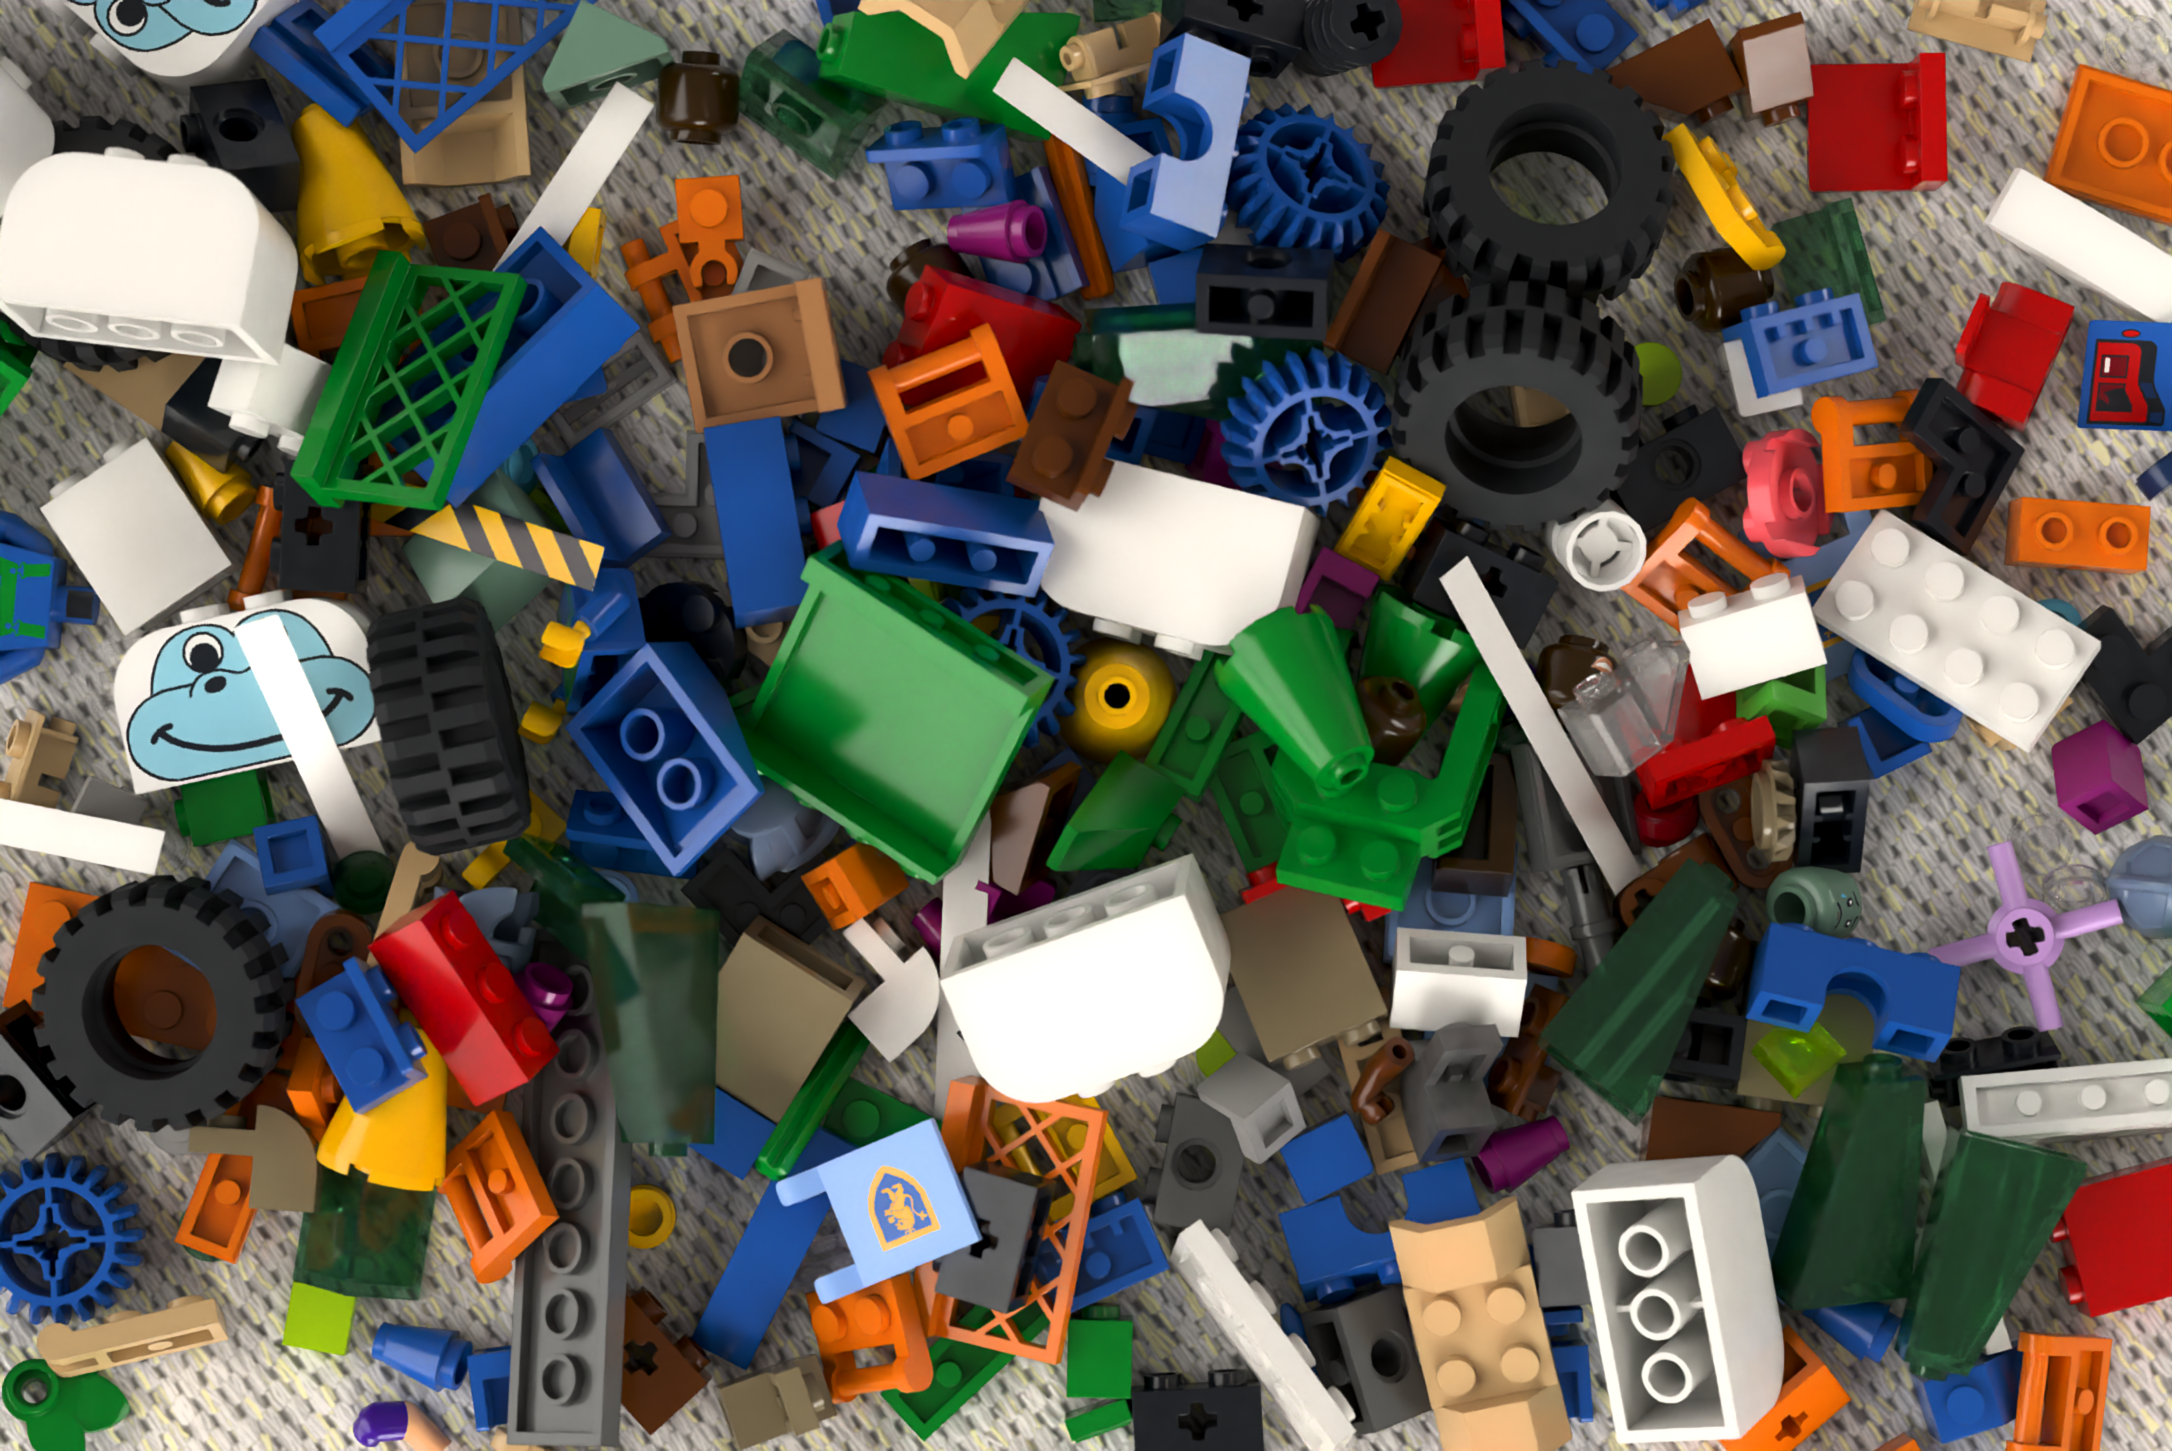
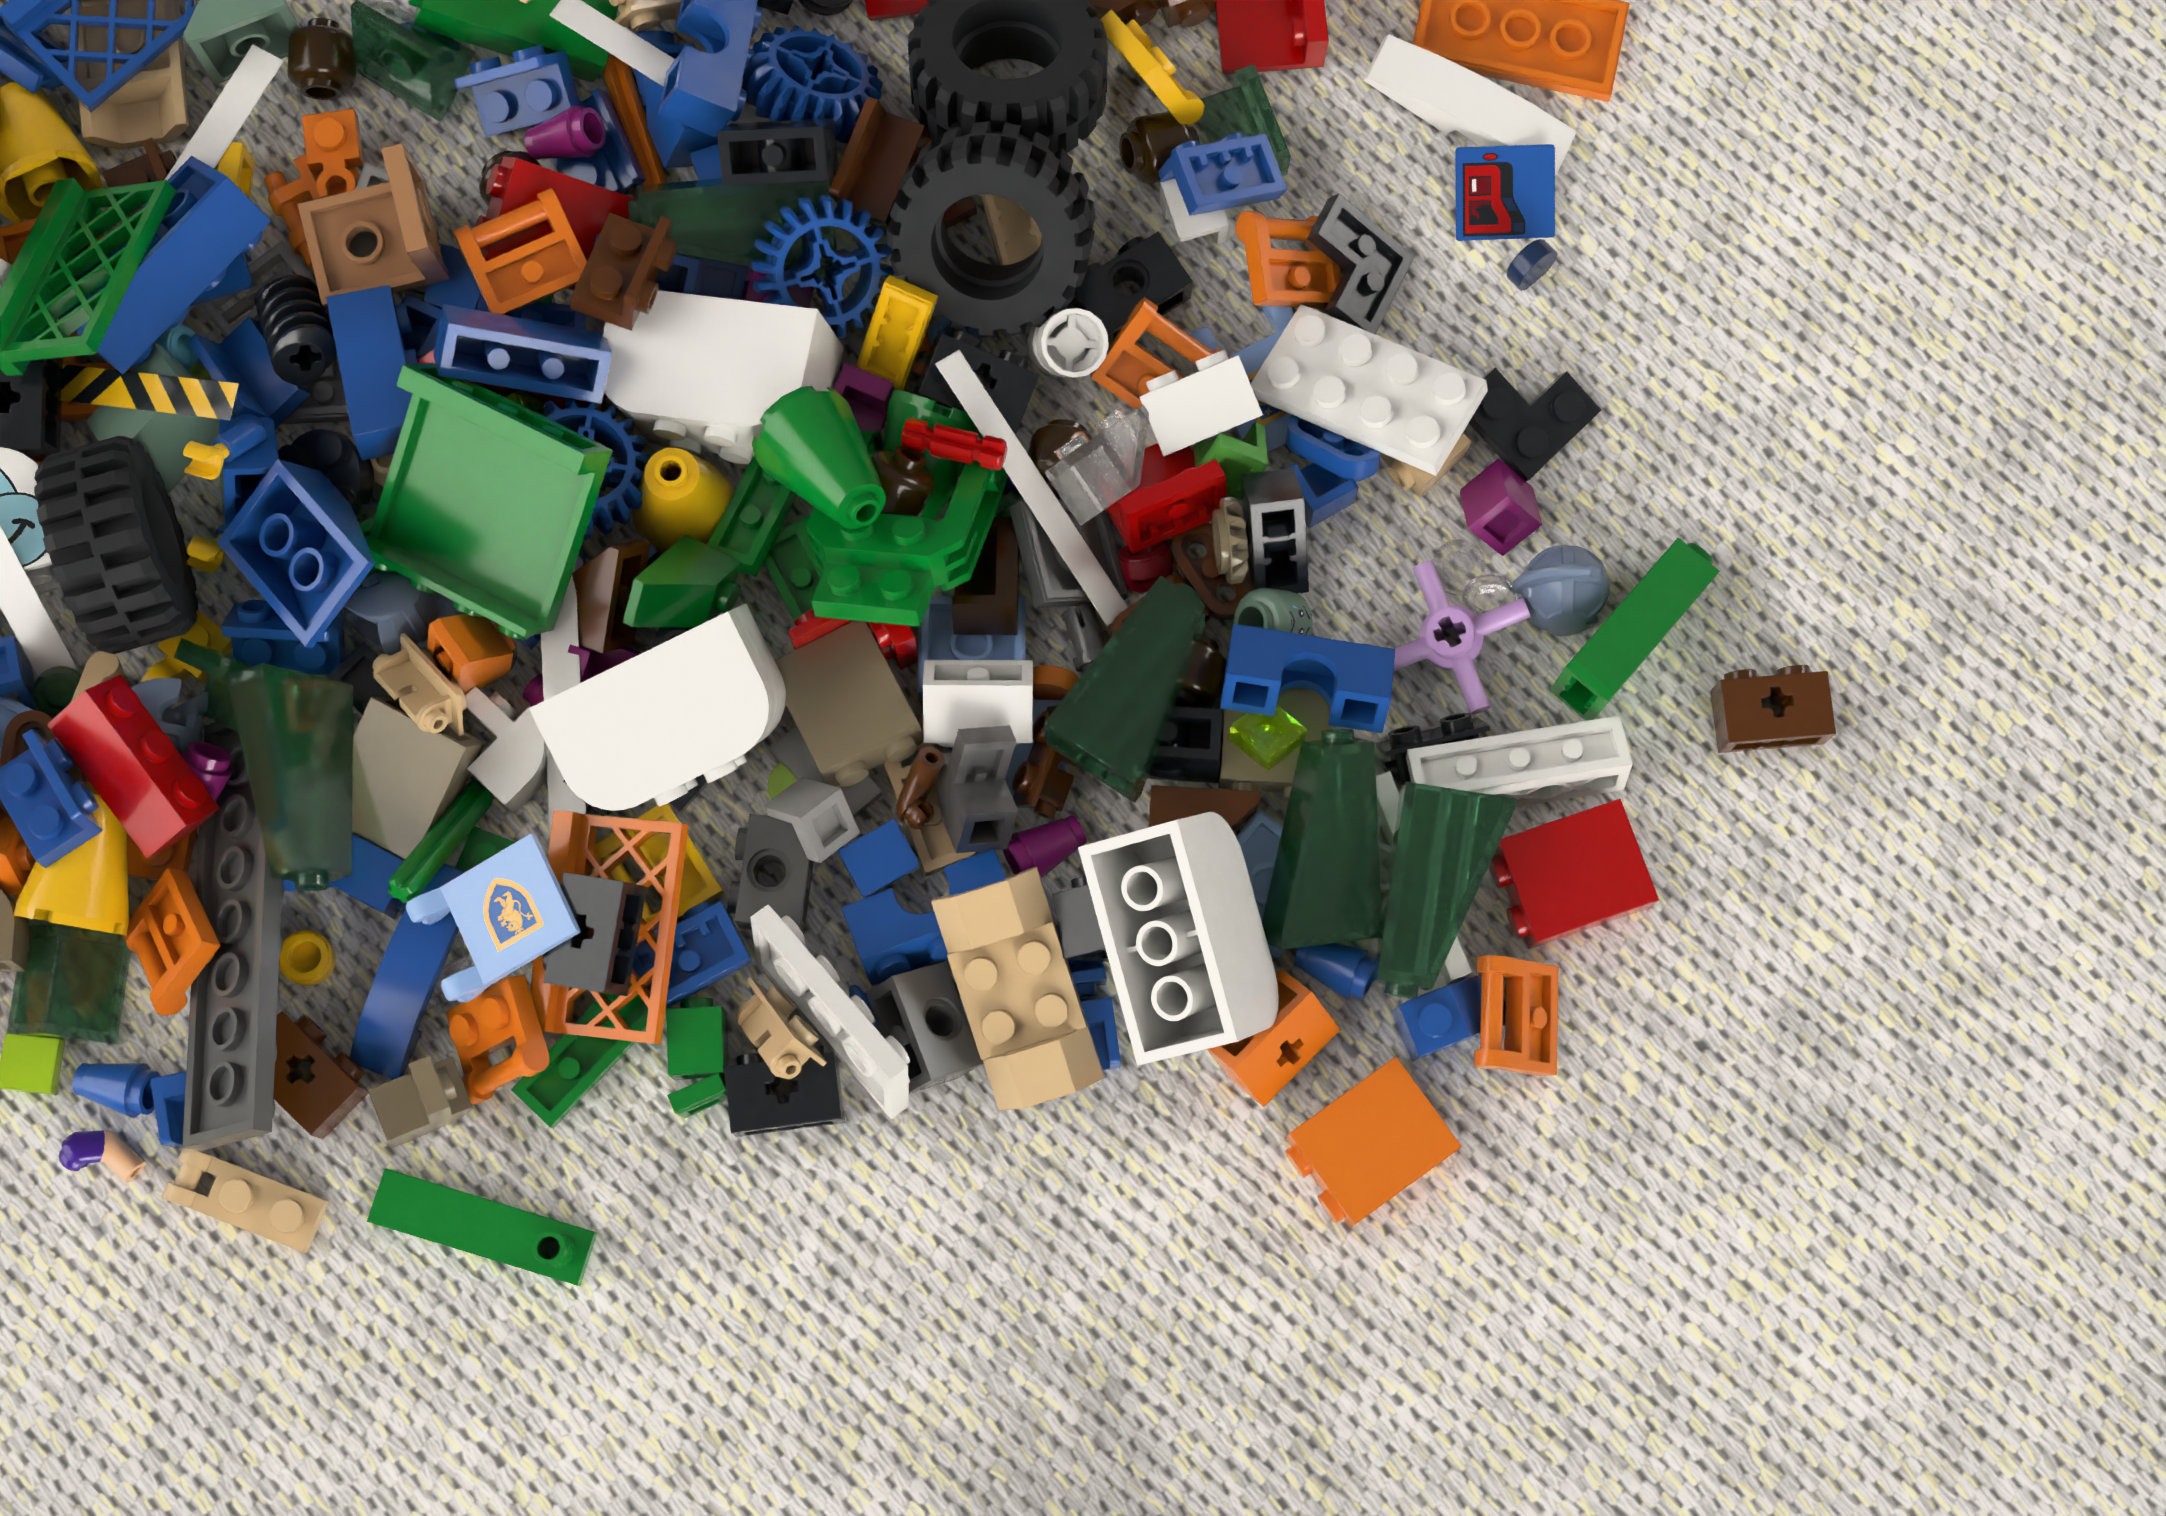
camera: 10 degrees left, 10 degrees down
(660, 454) = (295, 329): none -> black piece
(819, 942) = (426, 692): none -> tan hinge
(1213, 1369) = (782, 1039): none -> tan hinge
(1454, 677) = (954, 444): none -> red axle
(1660, 373) = (1111, 221): lime tile -> none
(1785, 494) = (1221, 296): coral plate -> none
(2011, 352) = (1395, 176): red piece -> none
(2077, 535) = (1463, 315): orange brick -> none

